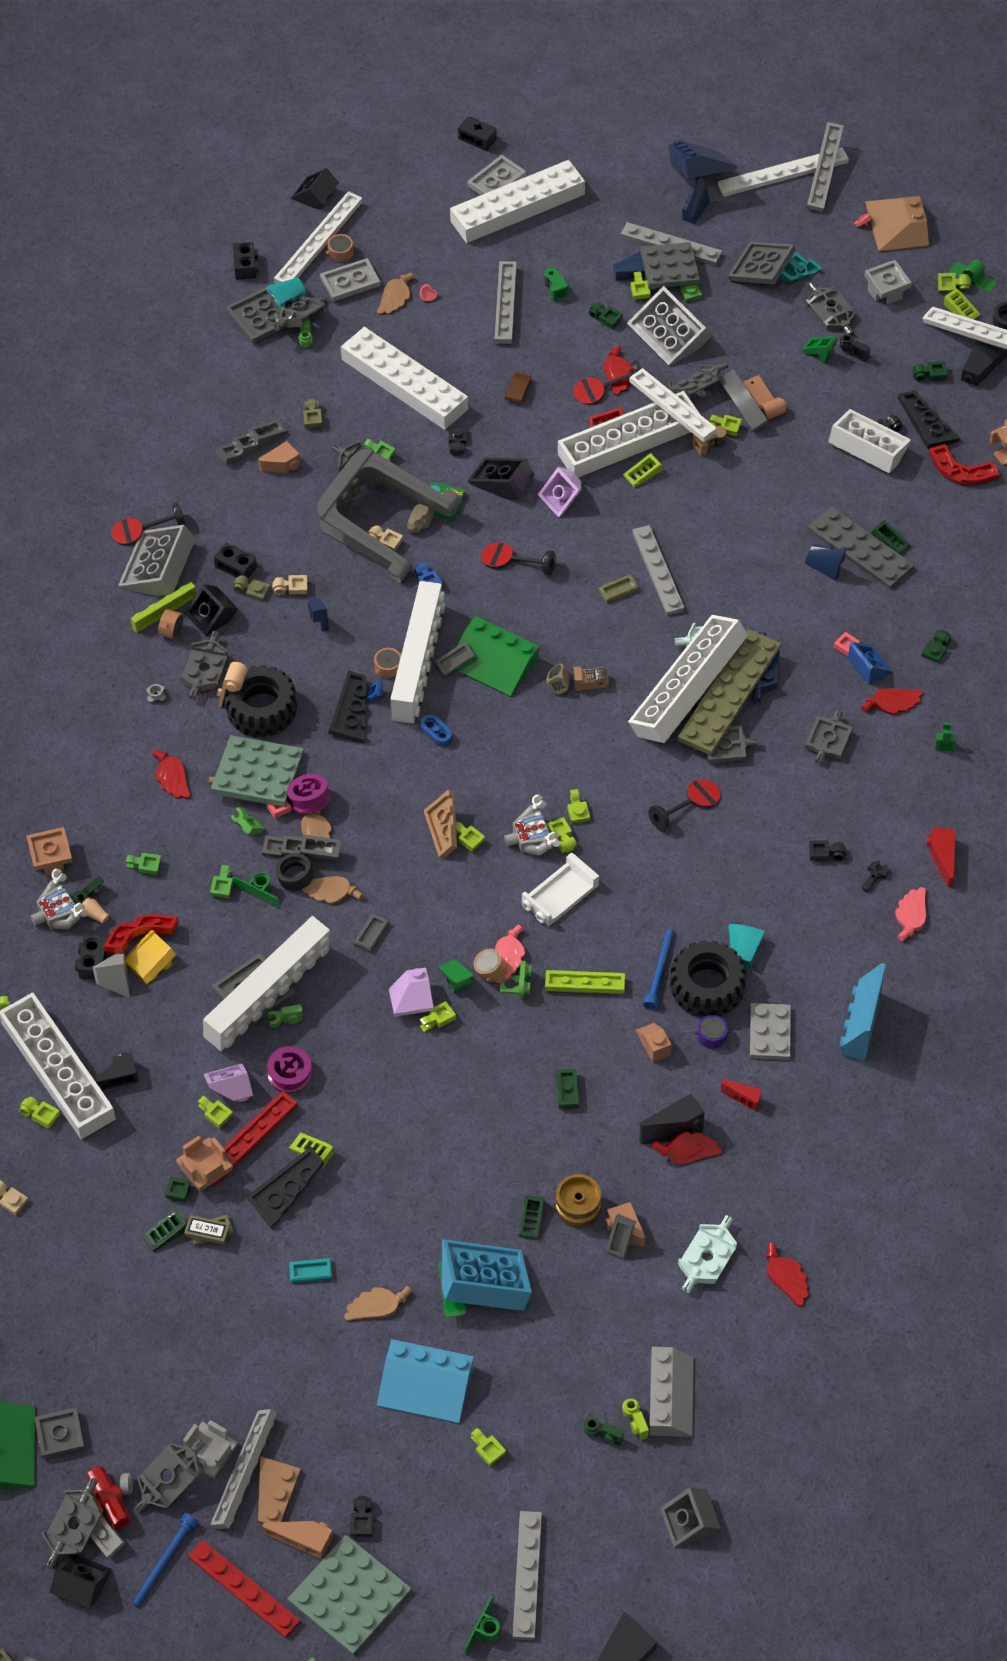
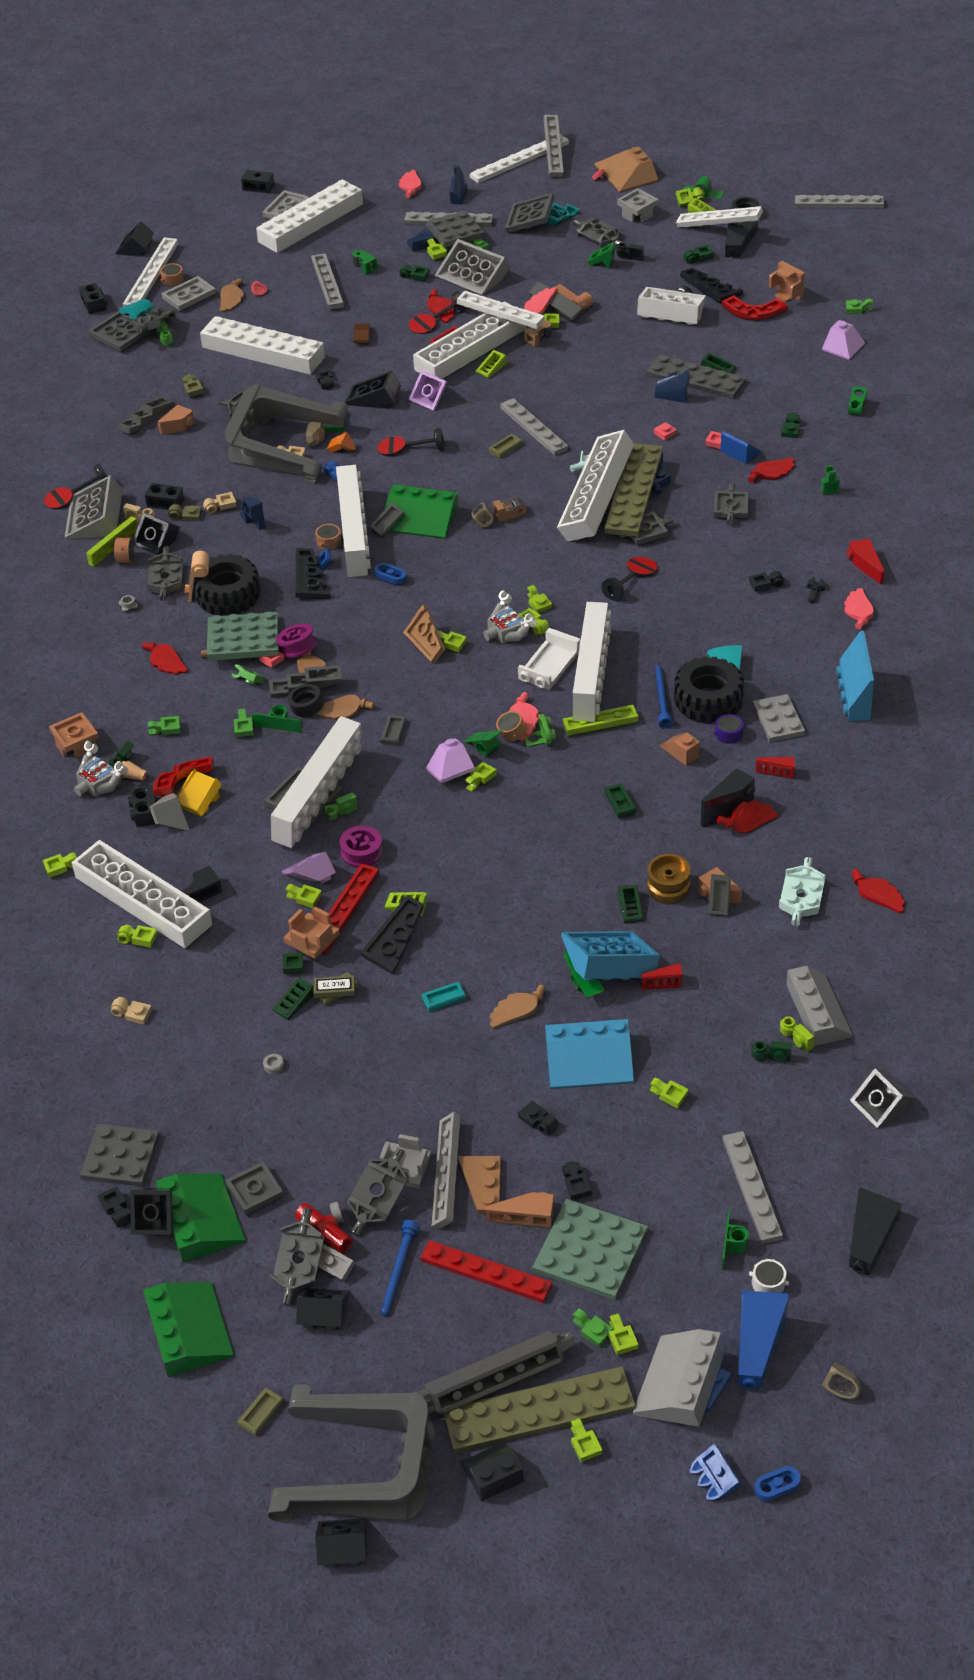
camera: 15 degrees left, 10 degrees down
(122, 1298) = (273, 1063): none -> light grey tile
(197, 575) = (135, 511): none -> tan plate
(350, 1433) = (534, 1116): none -> black plate
(444, 538) = (342, 441): none -> orange tile
(530, 1315) = (665, 978): none -> red slope
(597, 910) = (591, 662): none -> white brick
(647, 178) = (411, 183): none -> coral animal
(697, 160) = (447, 156): dark blue slope -> none
(708, 376) = (517, 292): dark grey plate -> none
(722, 400) = (540, 301): none -> coral animal
(797, 615) = (665, 431): none -> coral plate

